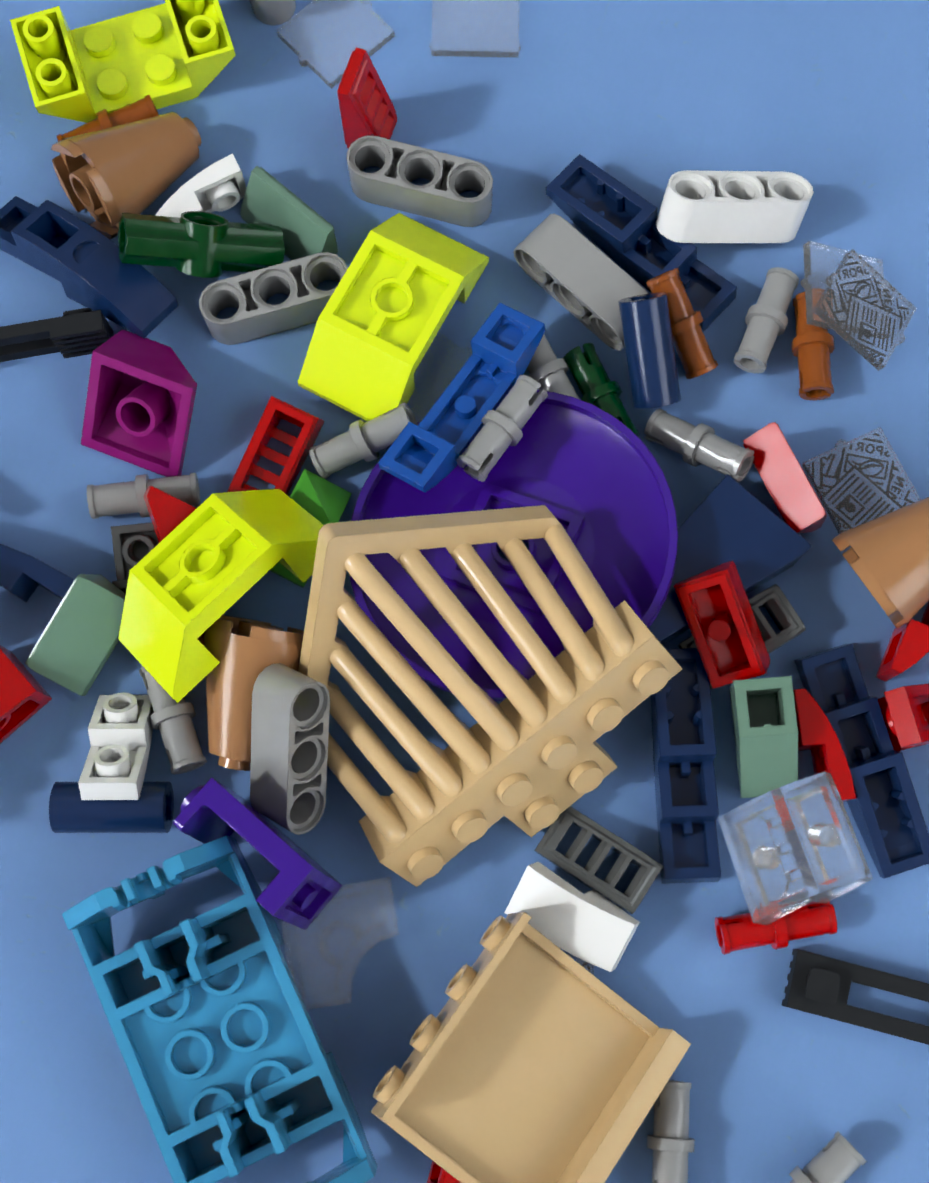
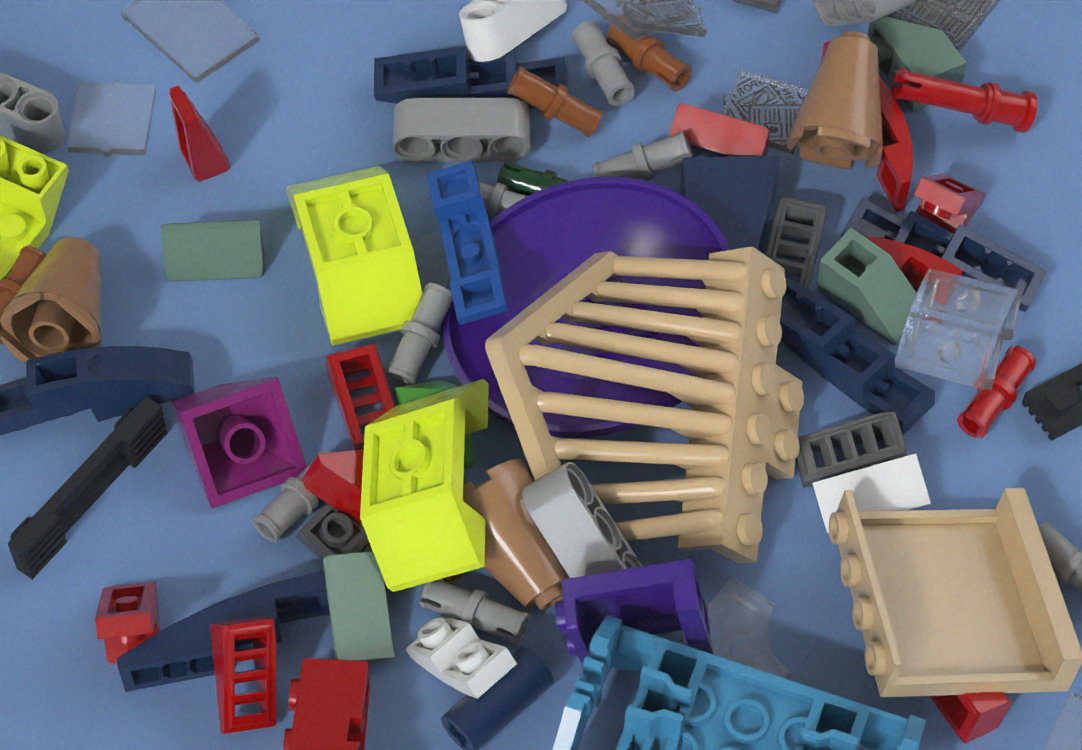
camera: 45 degrees left, 20 degrees down
(199, 243) = (173, 301): dark green piece -> none
(210, 190) = (136, 293): white slope -> none
(252, 289) = (257, 321): light grey beam -> none
(404, 163) = (281, 155): light grey beam -> none
(502, 428) = (512, 241): light grey pin -> none
(650, 350) = (553, 129): dark blue piece -> none
(723, 625) = (778, 239): red slope -> none

